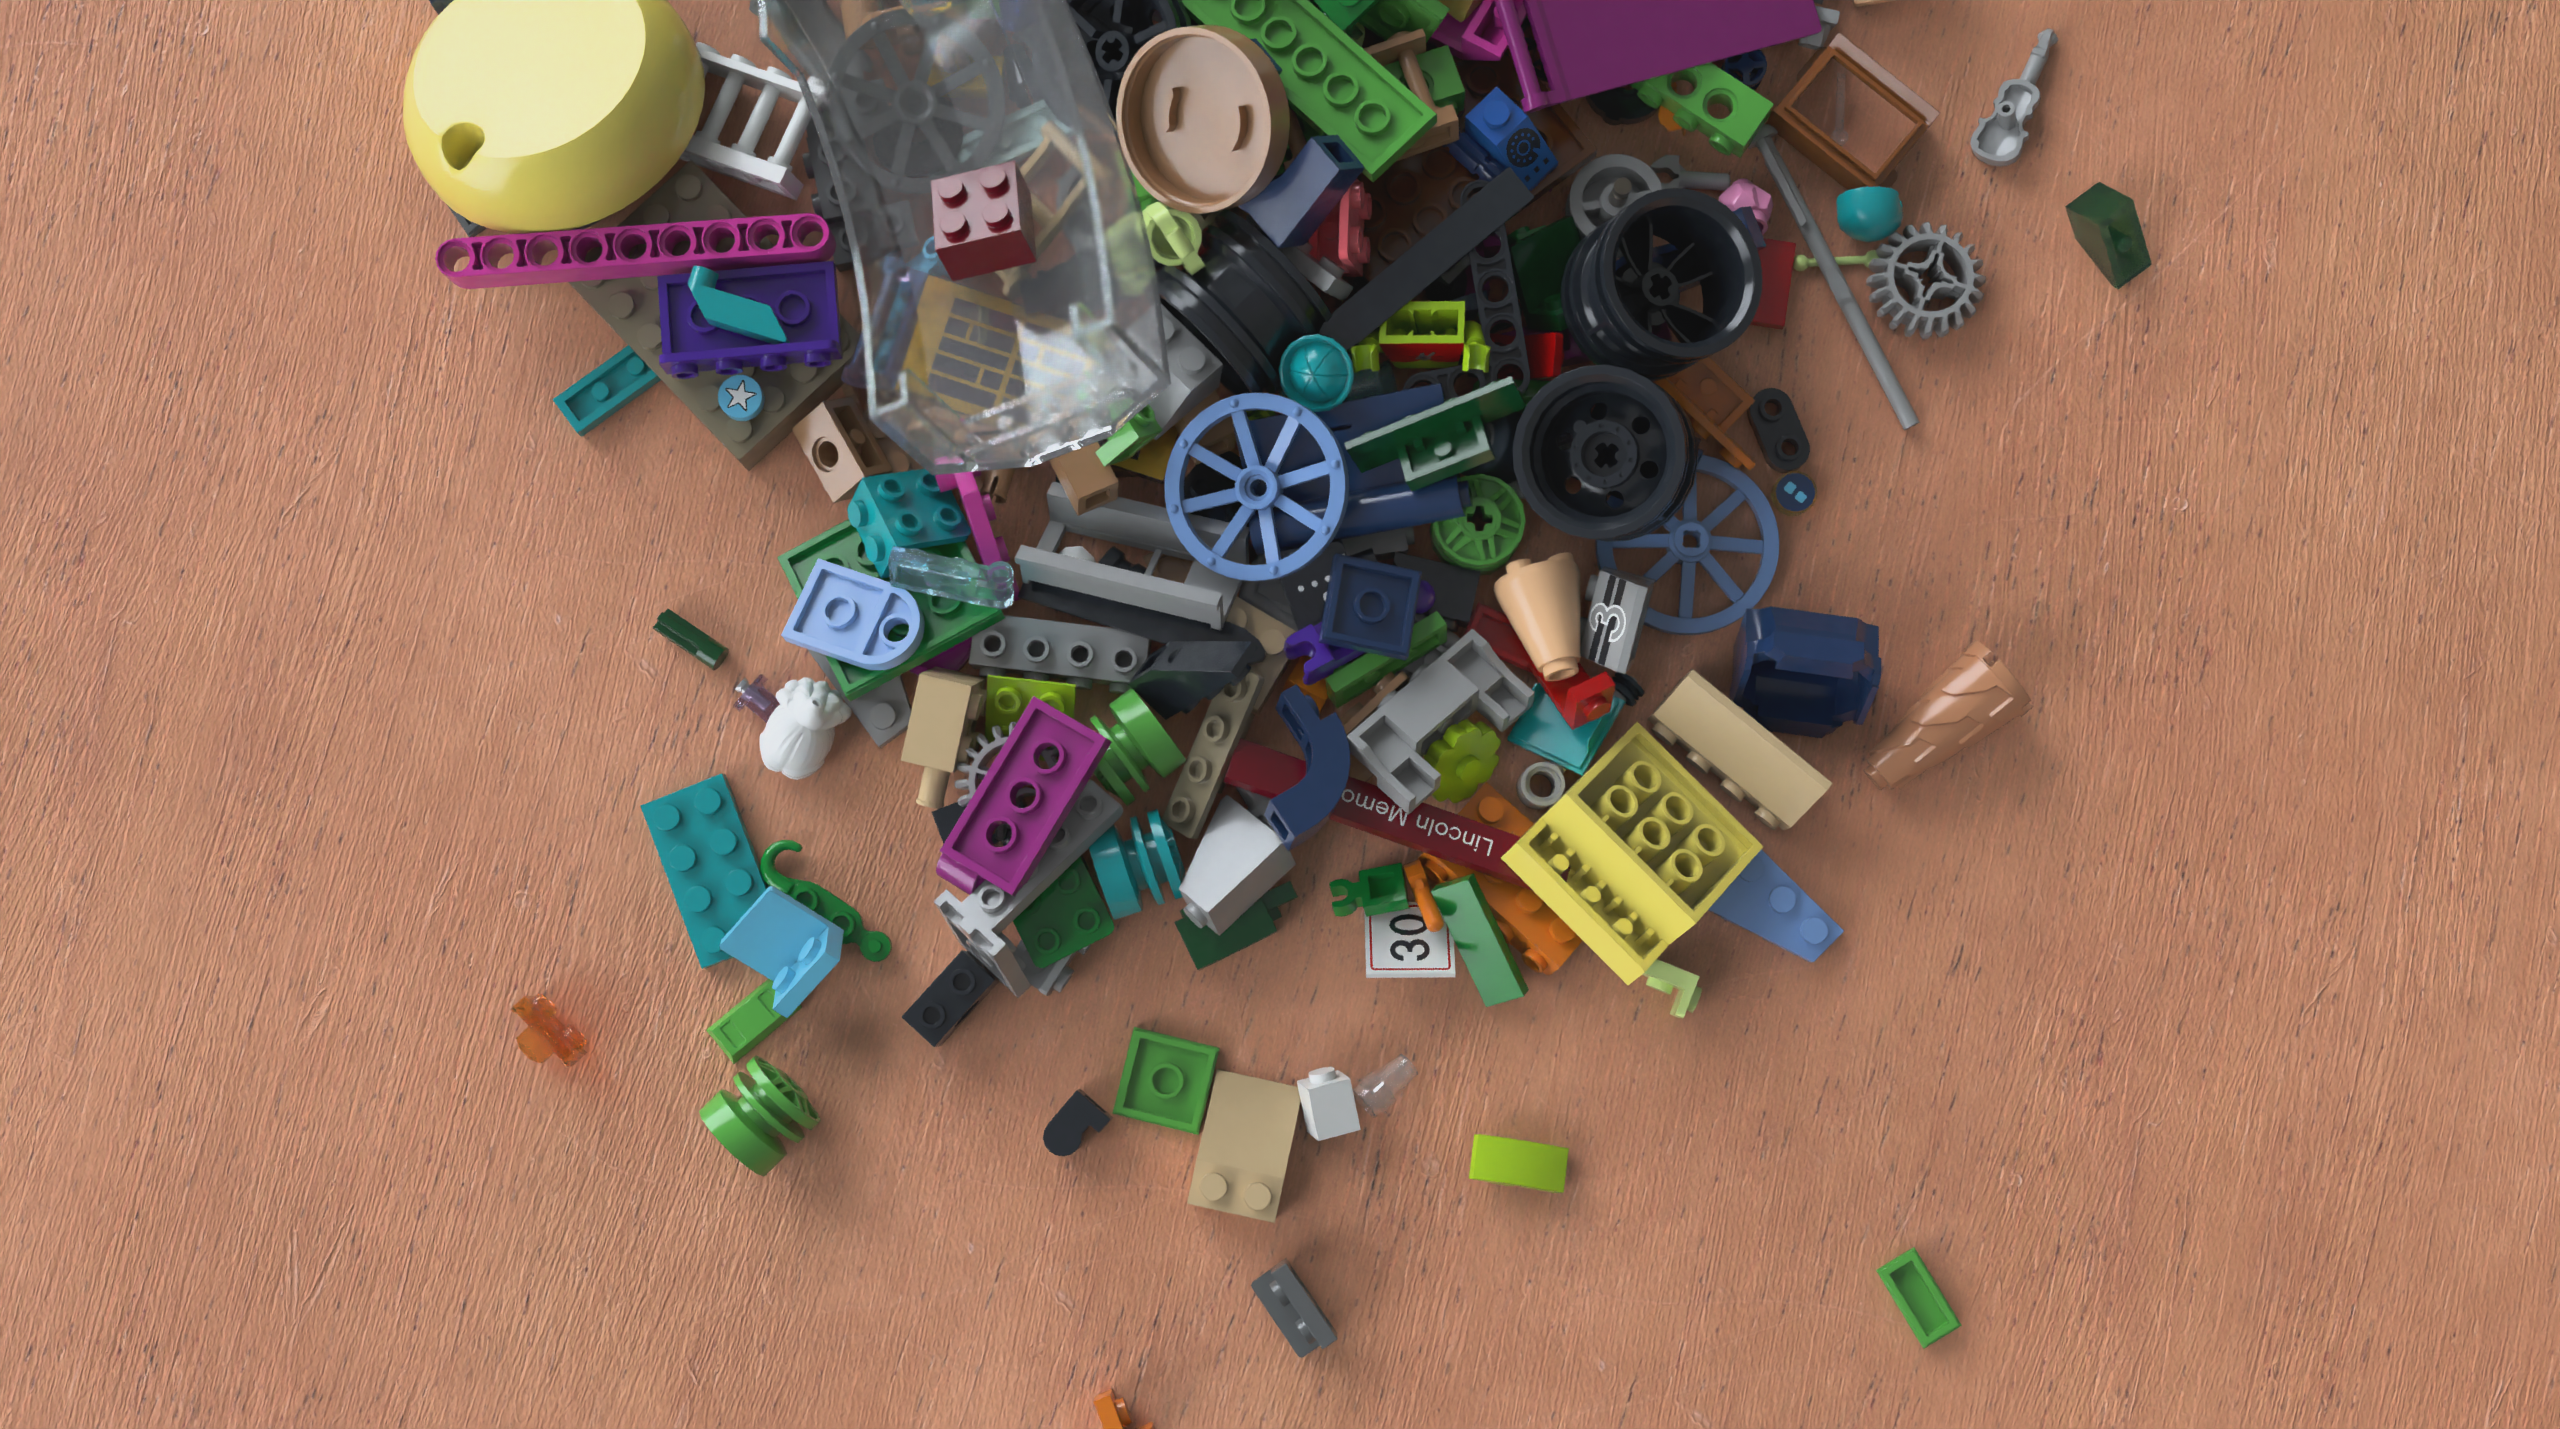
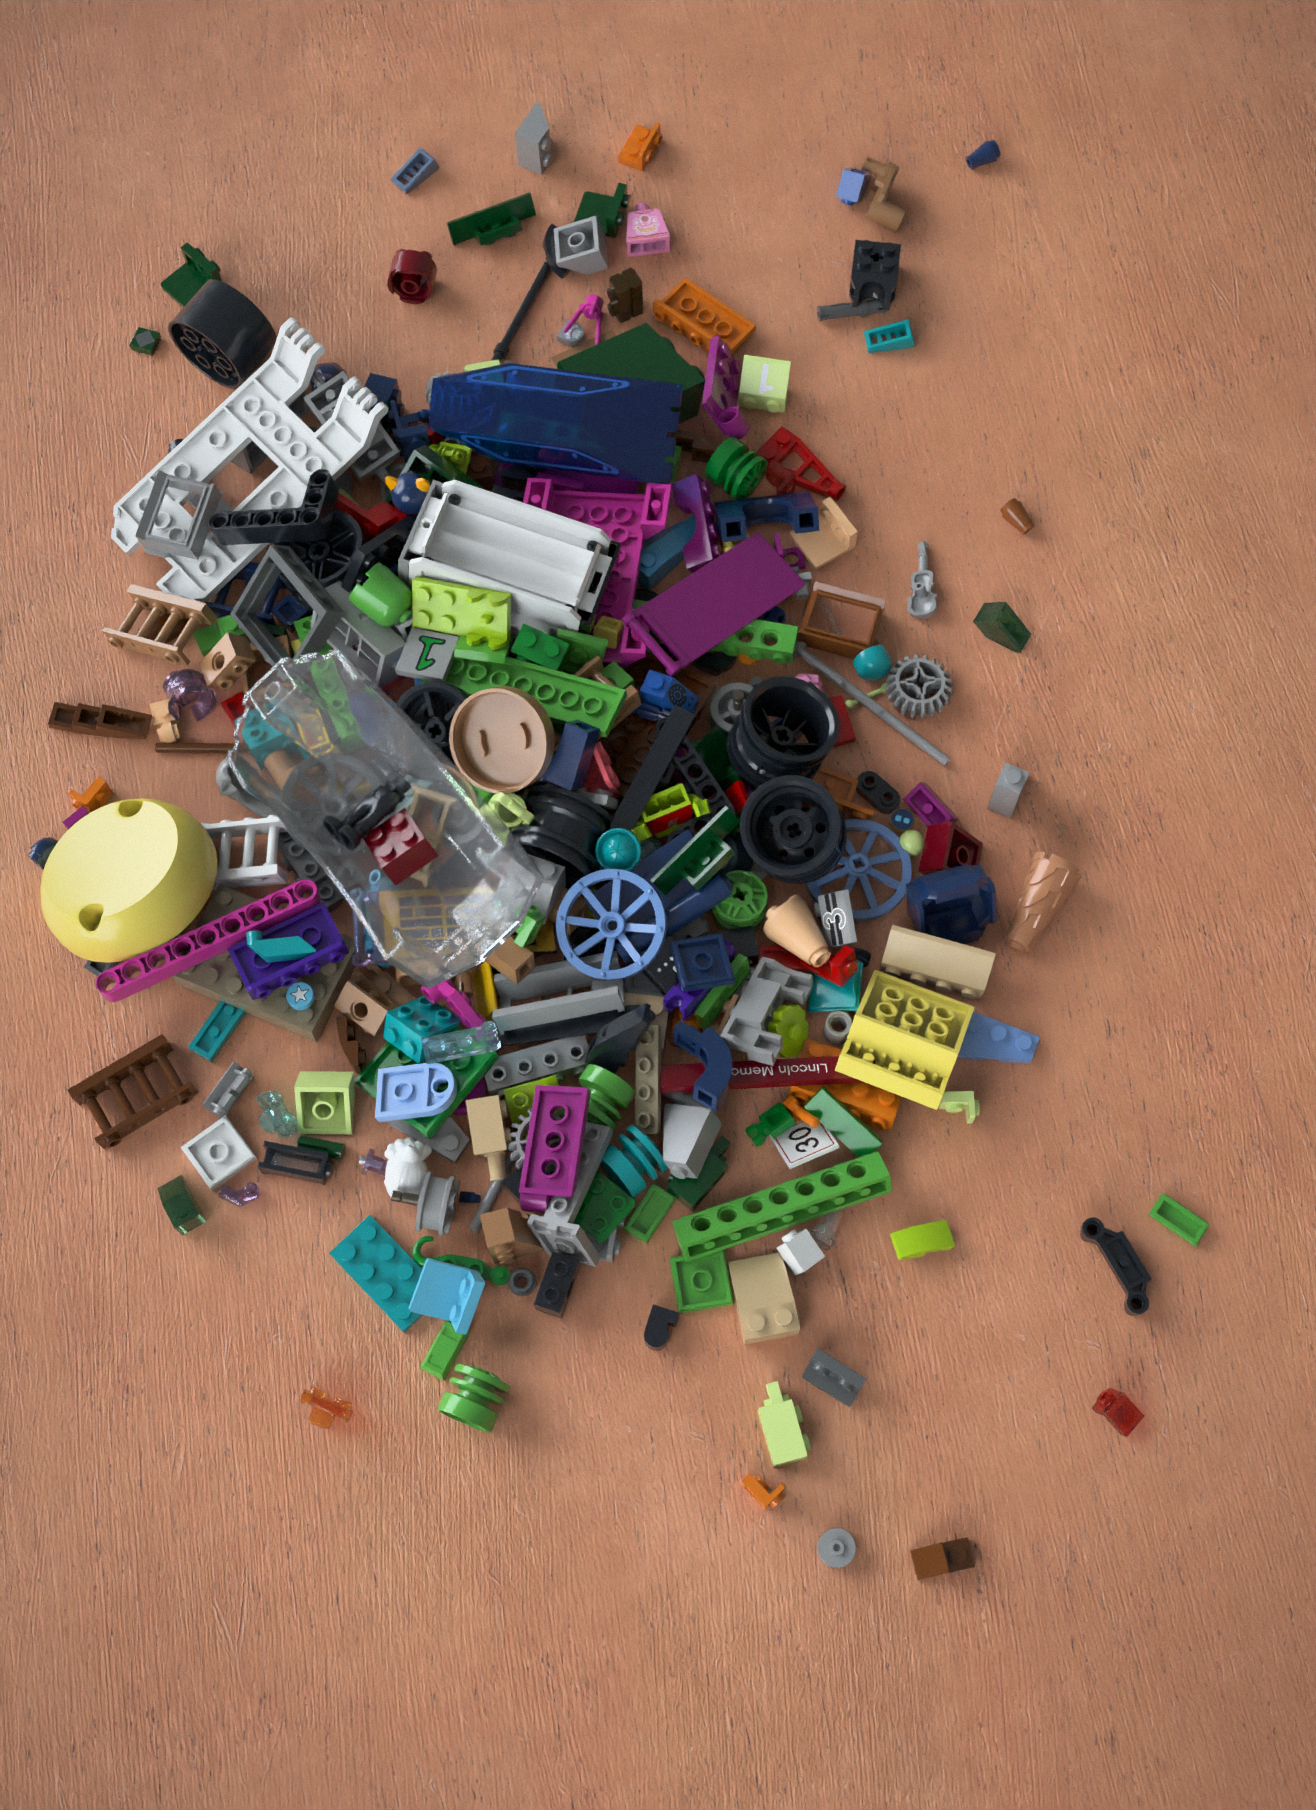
camera: 25 degrees left, 15 degrees down
(420, 402) = (110, 1079): none -> reddish brown fence
(452, 640) = (181, 1205): none -> clear green slope
(539, 582) = (218, 1152): none -> white tile
(545, 665) = (240, 1197): none -> clear purple arm
(586, 493) = (228, 1090): none -> light grey hinge
(642, 561) = (275, 1115): none -> clear light blue piece
(644, 651) = (296, 1163): none -> black window
(722, 572) = (325, 1102): none -> yellowish green slope
(794, 513) = (352, 1049): none -> reddish brown slope
(817, 802) = (434, 1203): none -> light grey wheel
(878, 811) = (469, 1197): none -> dark blue piece
(891, 964) = (518, 1274): none -> dark grey plate
(902, 899) = (508, 1235): none -> medium nougat wedge
(905, 825) = (490, 1197): none -> light grey bar
(954, 146) = (367, 813): none -> black piece
(1031, 505) = (485, 991): none -> yellow slope
(1134, 947) = (650, 1213): none -> bright green tile
(1186, 1348) = (782, 1429): none -> yellowish green hinge
(1350, 1041) = (782, 1206): none -> bright green brick
(1793, 536) = (912, 842): none -> yellowish green piece
(1802, 1328) = (1122, 1261): none -> black plate
(1843, 577) = (948, 847): none -> dark red slope
(1849, 491) = (929, 805): none -> magenta slope
(1987, 516) = (1008, 790): none -> light grey slope
(2228, 49) = (1017, 516): none -> dark orange cone

